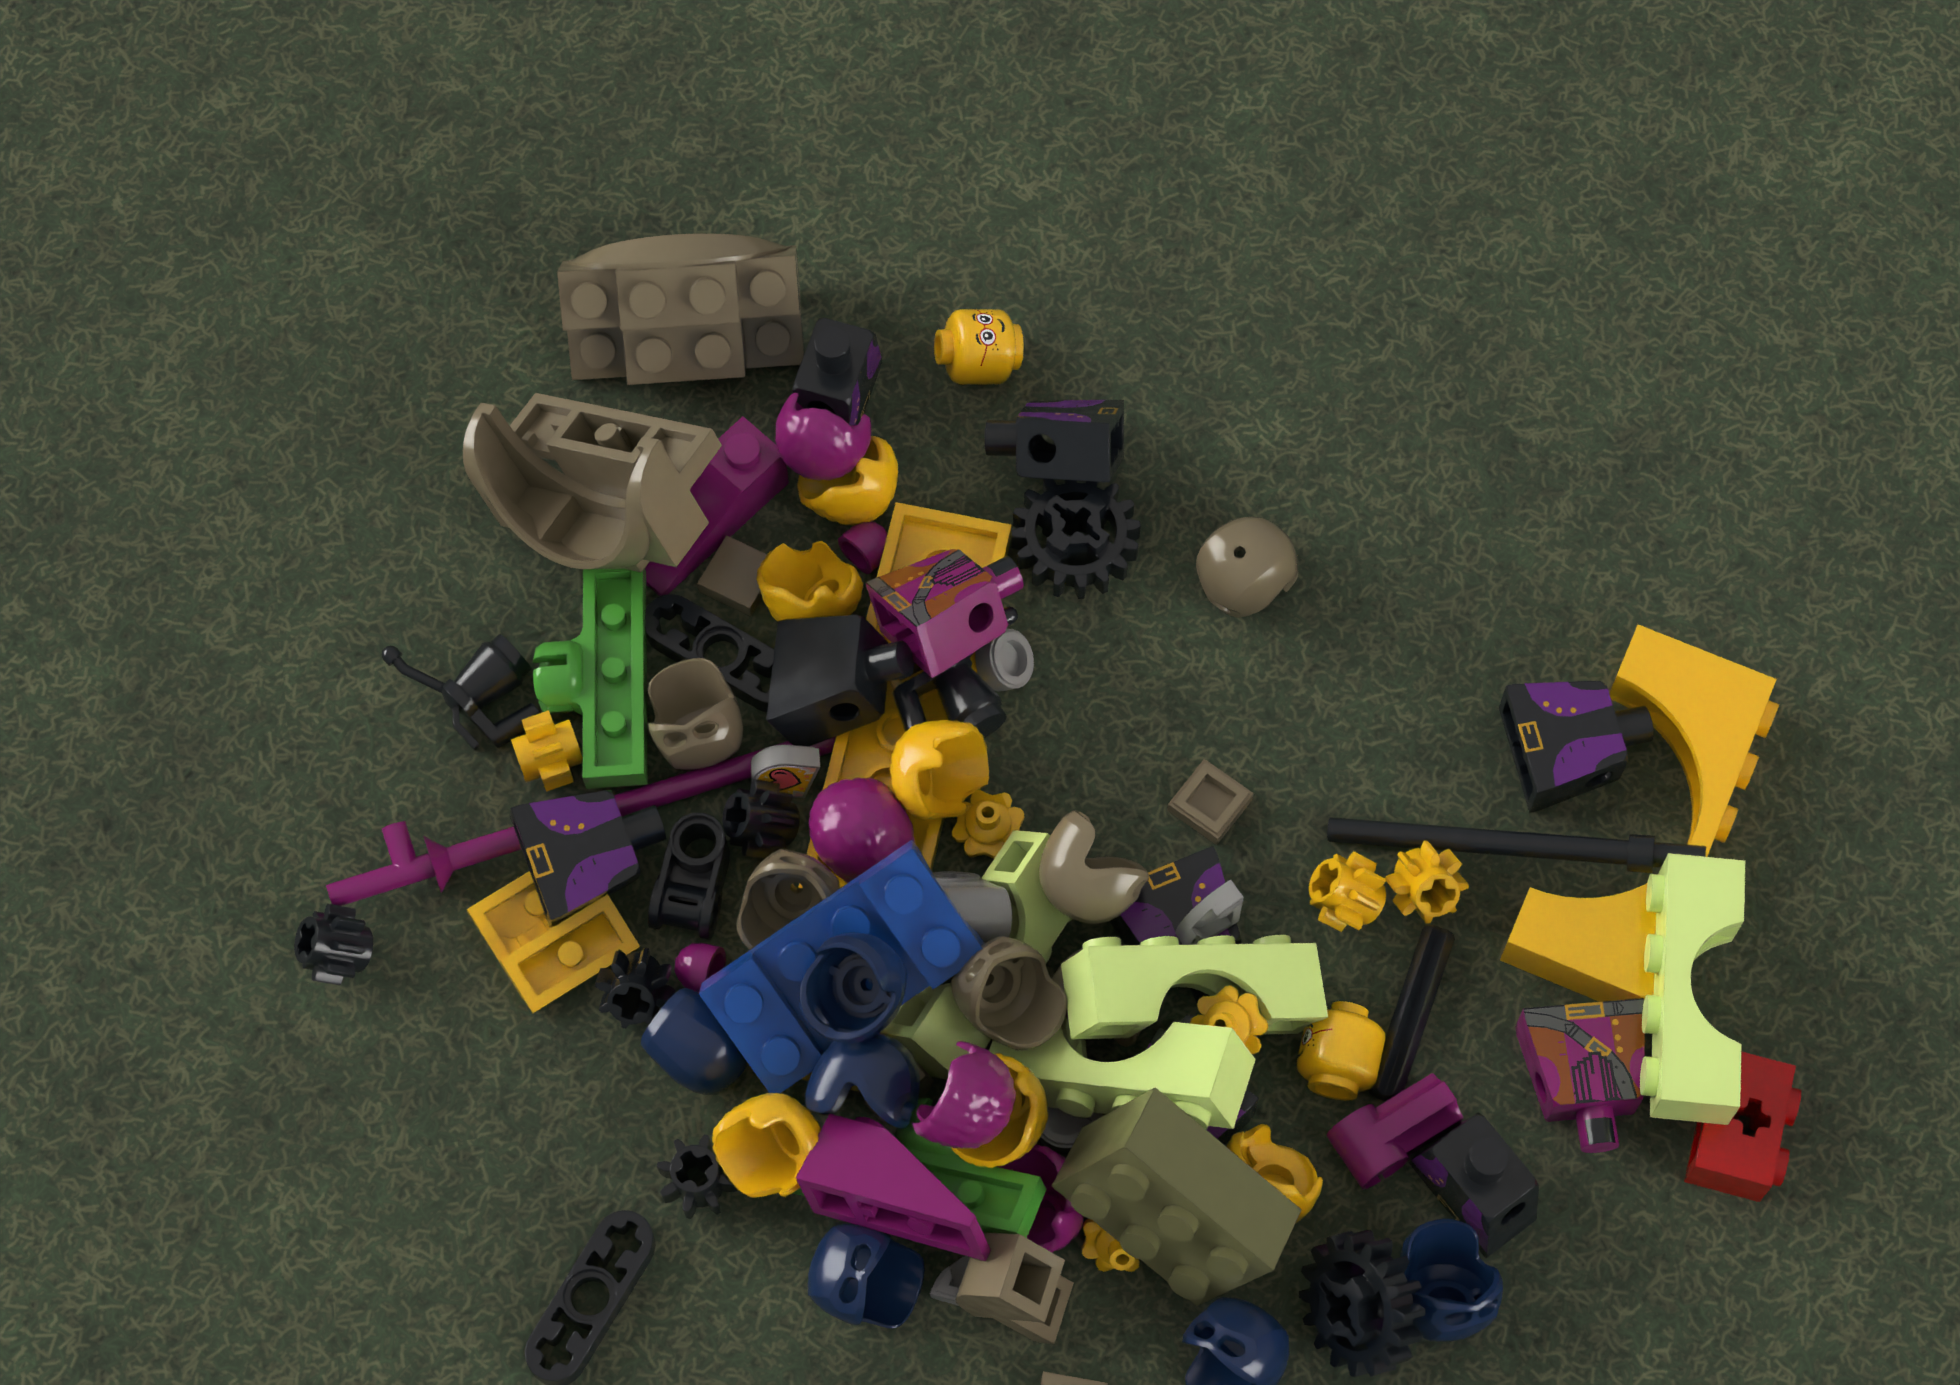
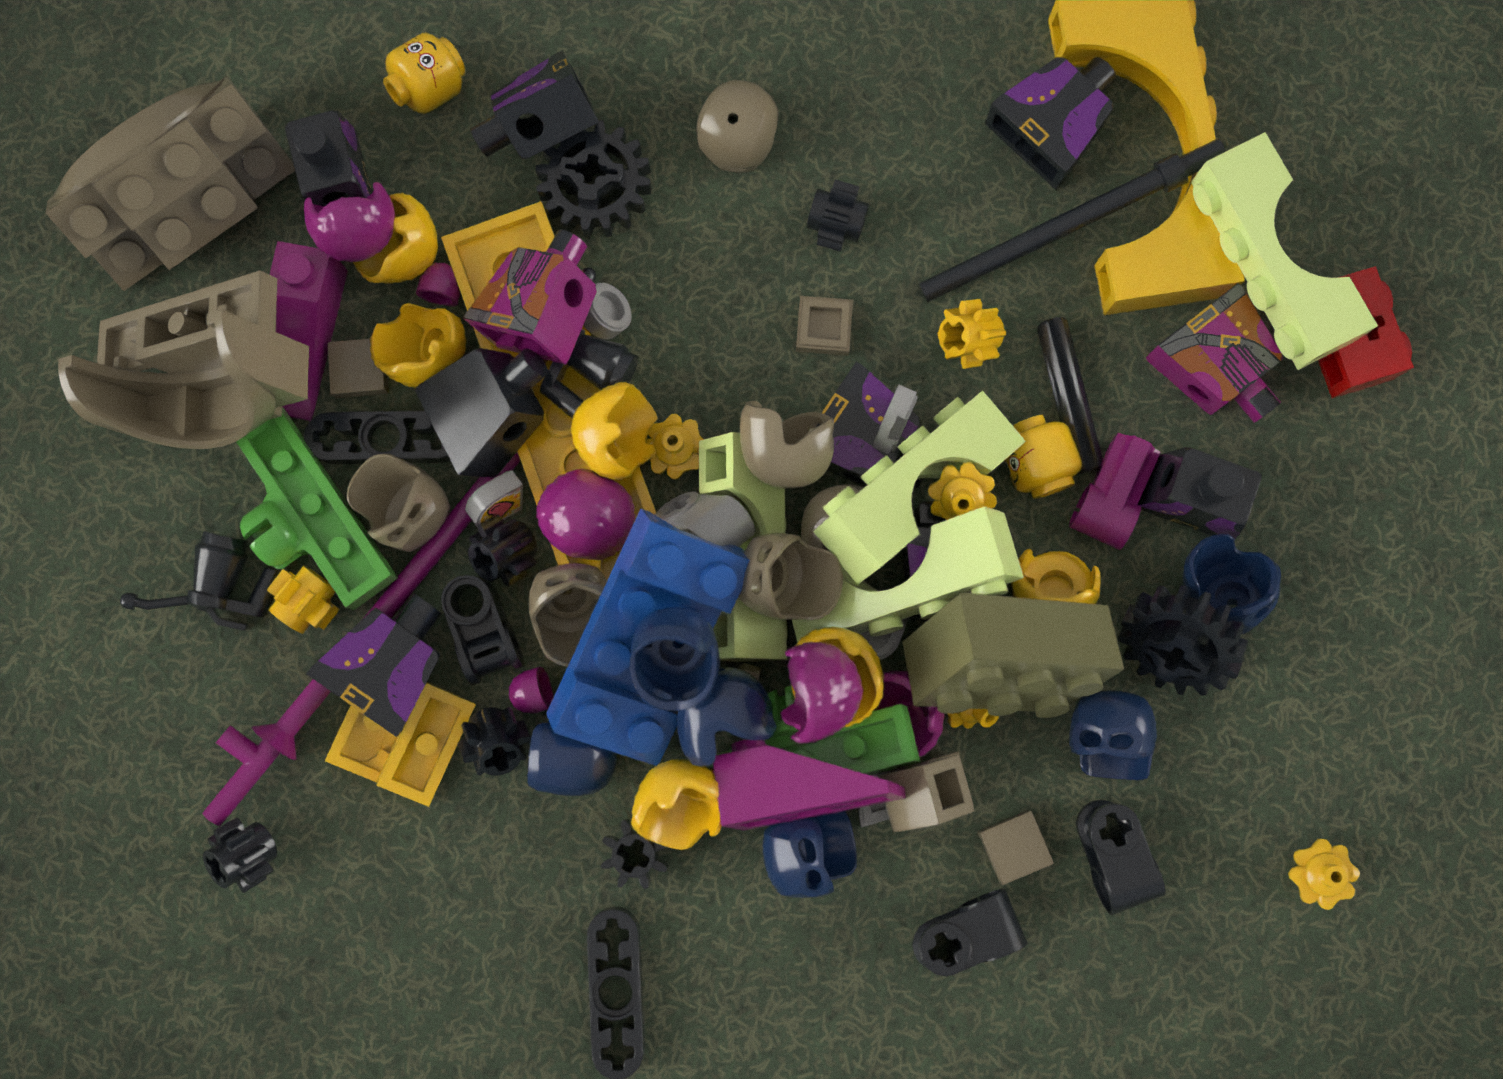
camera: 30 degrees left, 15 degrees up
(1288, 704) = (837, 215): none -> black gear
(1427, 882) = (1024, 290): yellow gear -> none

